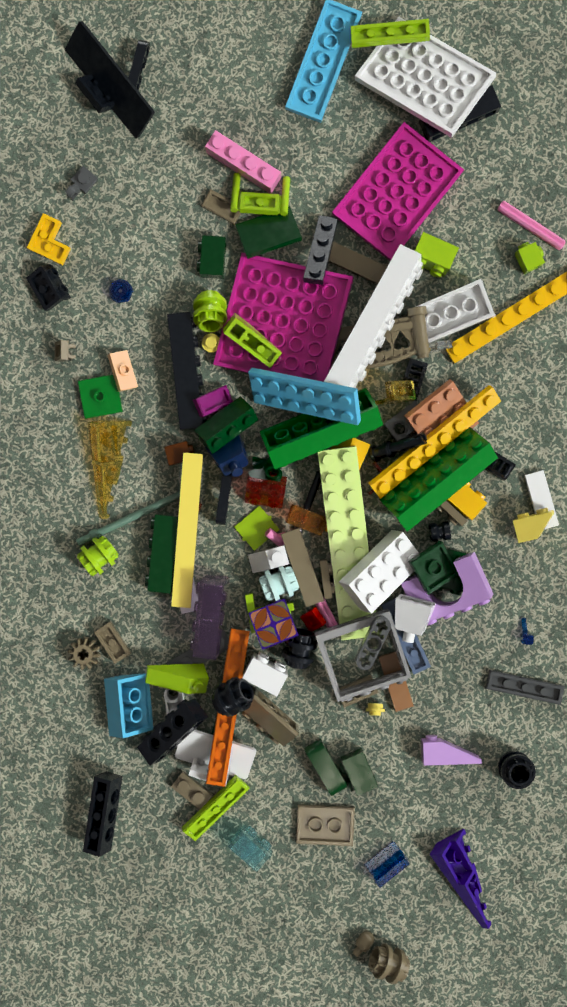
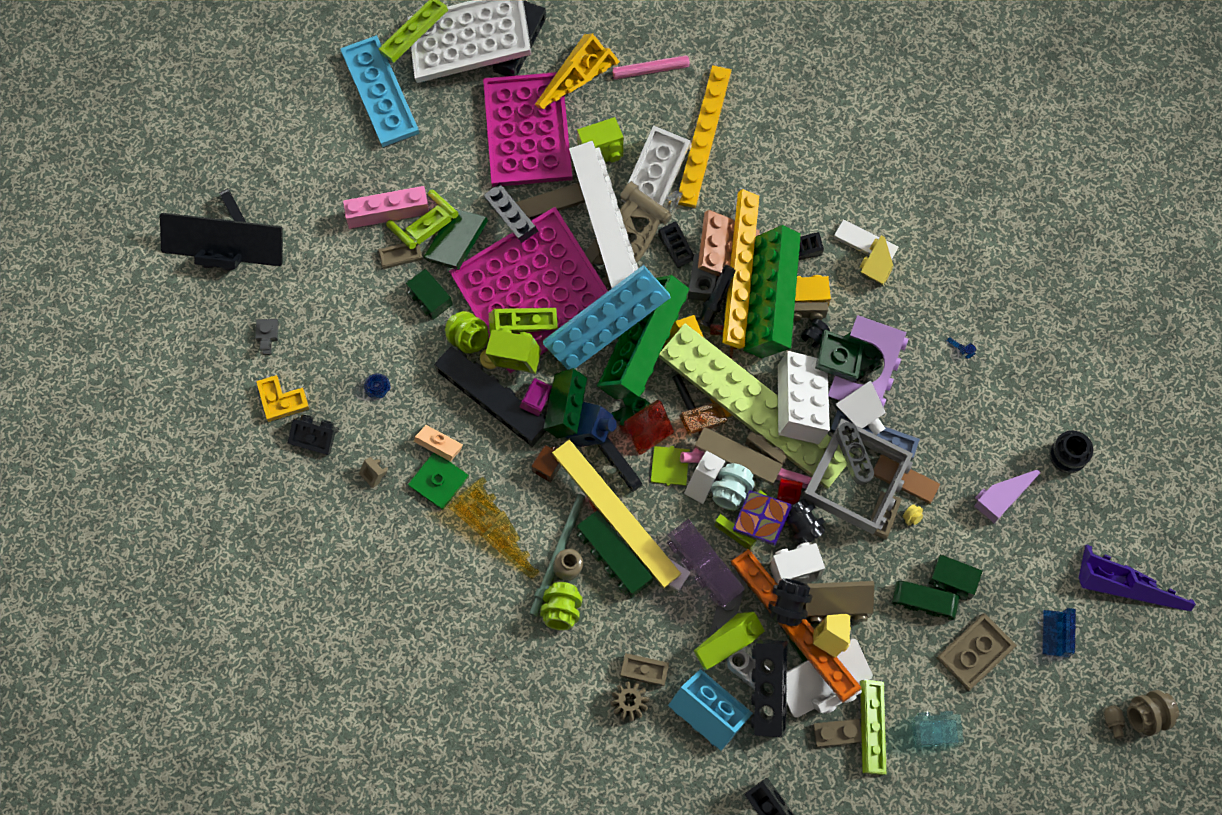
camera: 40 degrees left, 20 degrees down
(121, 538) = (568, 564): none -> dark tan head
(223, 358) = (513, 350): none -> lime brick
(241, 739) = (833, 634): none -> light yellow slope
(398, 392) = (678, 257): clear yellow panel -> none
(488, 177) = (583, 64): none -> yellow wedge
(525, 687) = (1007, 388): dark grey tile -> none
(529, 257) = (672, 87): lime brick -> none

